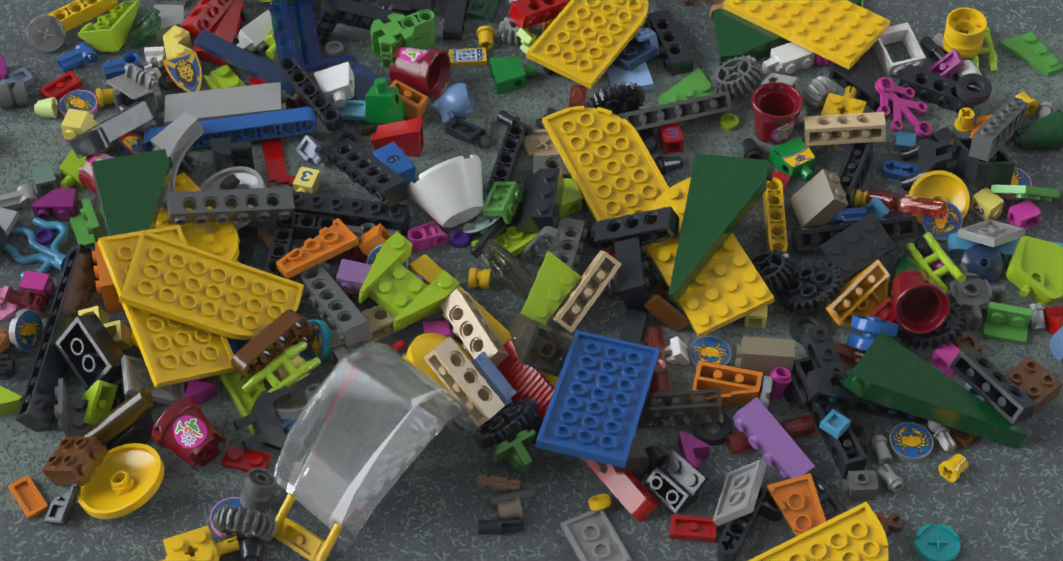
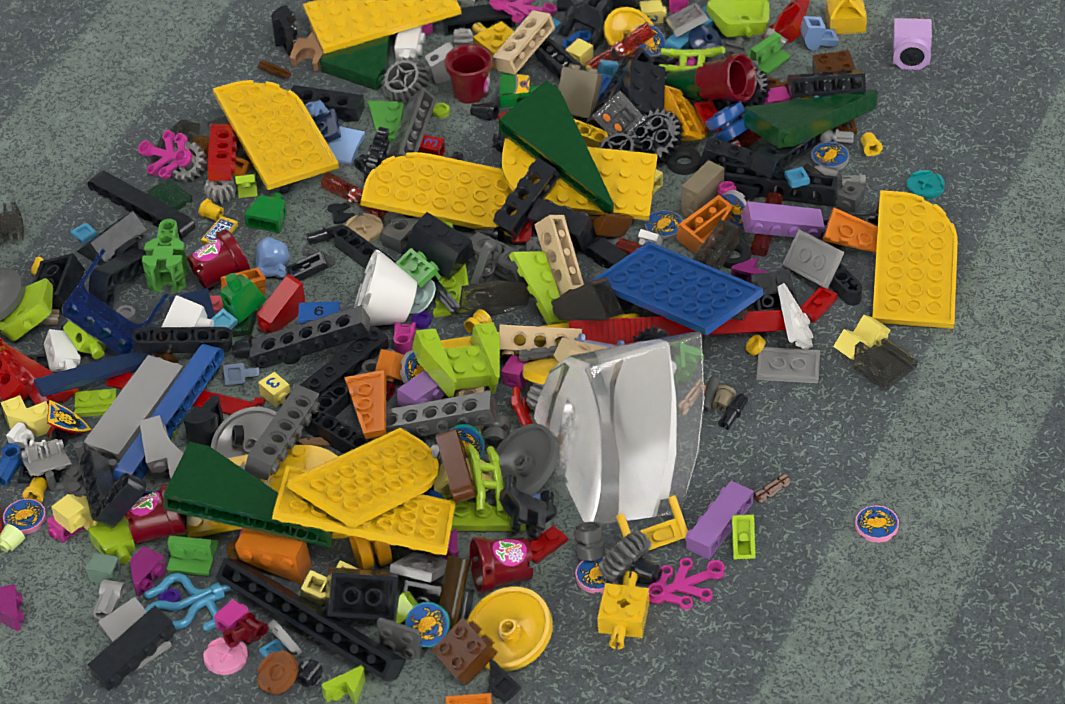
camera: 55 degrees left, 5 degrees down
(85, 417) = (430, 621): none -> tile
(450, 331) = (537, 353): none -> dark grey axle
(643, 517) = (795, 320): none -> white wing
(805, 245) = (618, 115): none -> clear tile
(881, 178) = (581, 51): none -> light yellow brick

